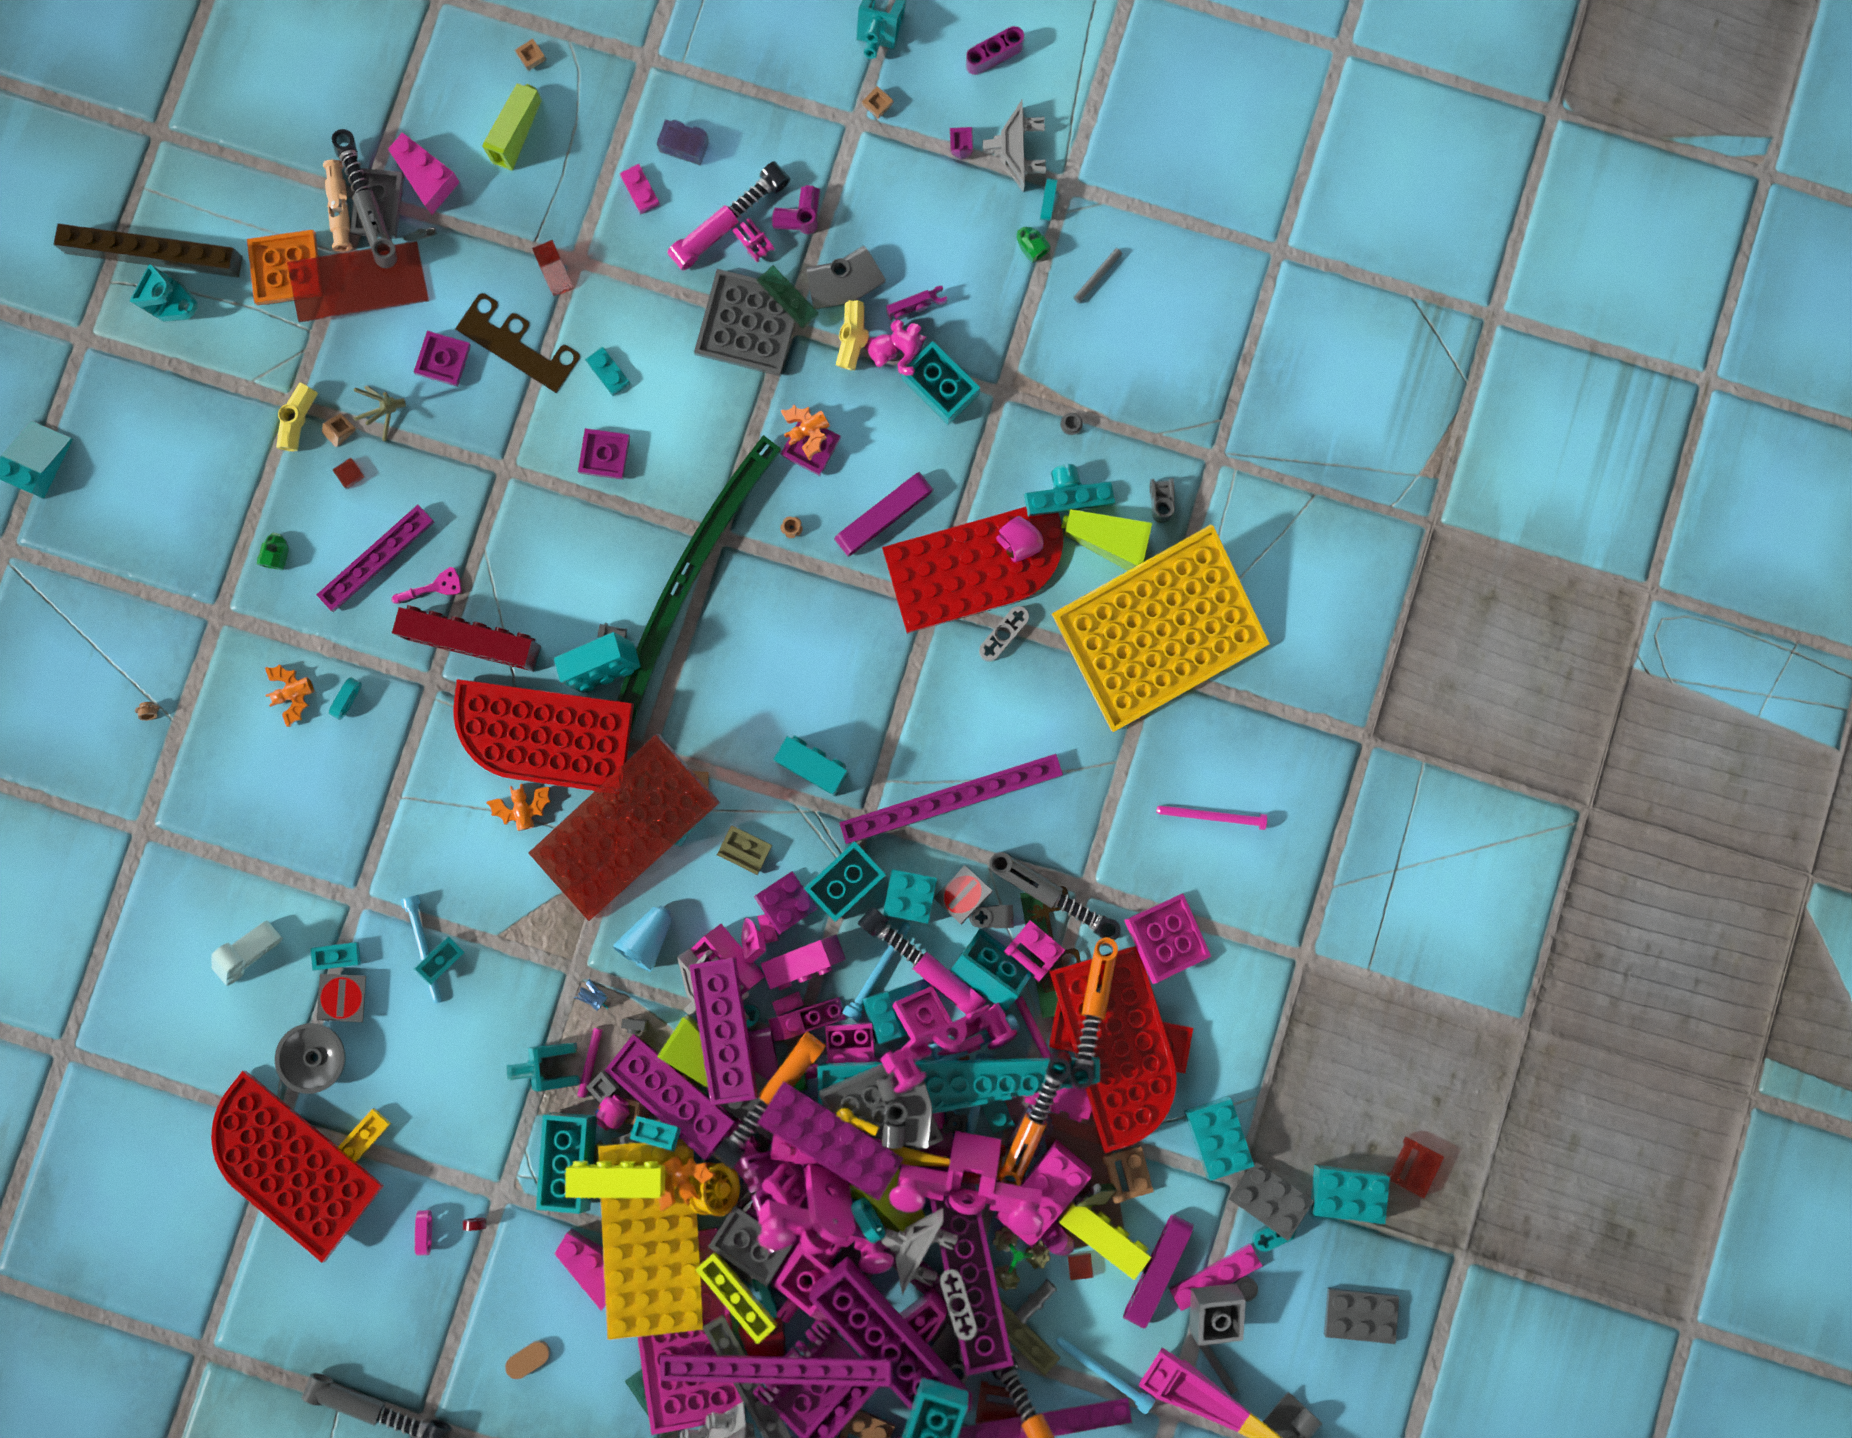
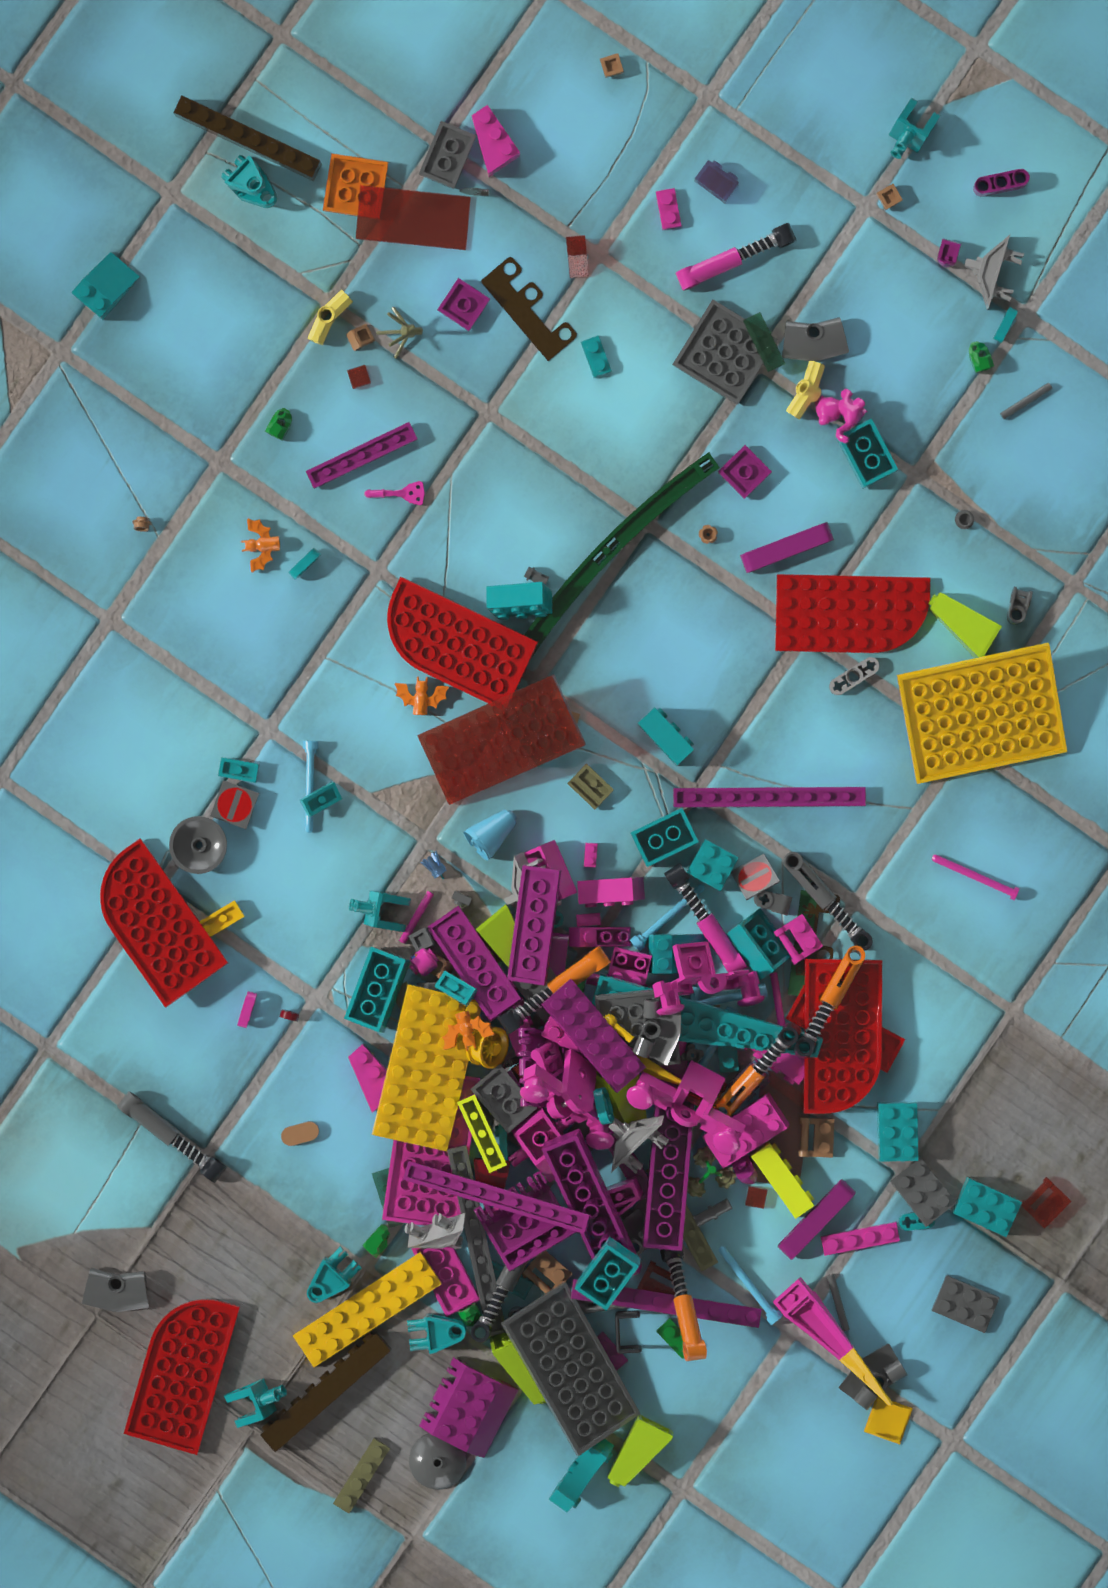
camera: 15 degrees right, 5 degrees up
(232, 959) = (168, 745): light aqua beam -> none
(337, 202) = (416, 136): light nougat piece -> none
(364, 200) = (440, 154): piece -> none
(466, 639) = (419, 547): dark red brick -> none
(512, 126) = (580, 124): lime slope -> none
(604, 454) = (573, 426): magenta plate -> none
(615, 1180) = (415, 1014): neon yellow brick -> none
(752, 941) = (575, 861): dark pink plate -> none
(754, 241) = (751, 285): dark pink arm -> none
(785, 902) = (611, 839): magenta plate -> none
(792, 218) = (803, 269): magenta piece -> none
(810, 426) = (749, 457): orange animal -> none
(917, 302) = (870, 379): magenta plate -> none
(969, 1320) = (659, 1206): light grey beam -> none
(970, 1045) = (724, 997): dark pink plate -> none
(1020, 539) = (891, 605): dark pink piece -> none
(1068, 494) = (943, 578): teal plate -> none
(1098, 1196) = (788, 1145): tile -> none
(1167, 938) = (907, 962): dark pink plate -> none
(1217, 1314) = (852, 1265): dark grey brick -> none
(1247, 1287) = (881, 1254): dark grey plate -> none

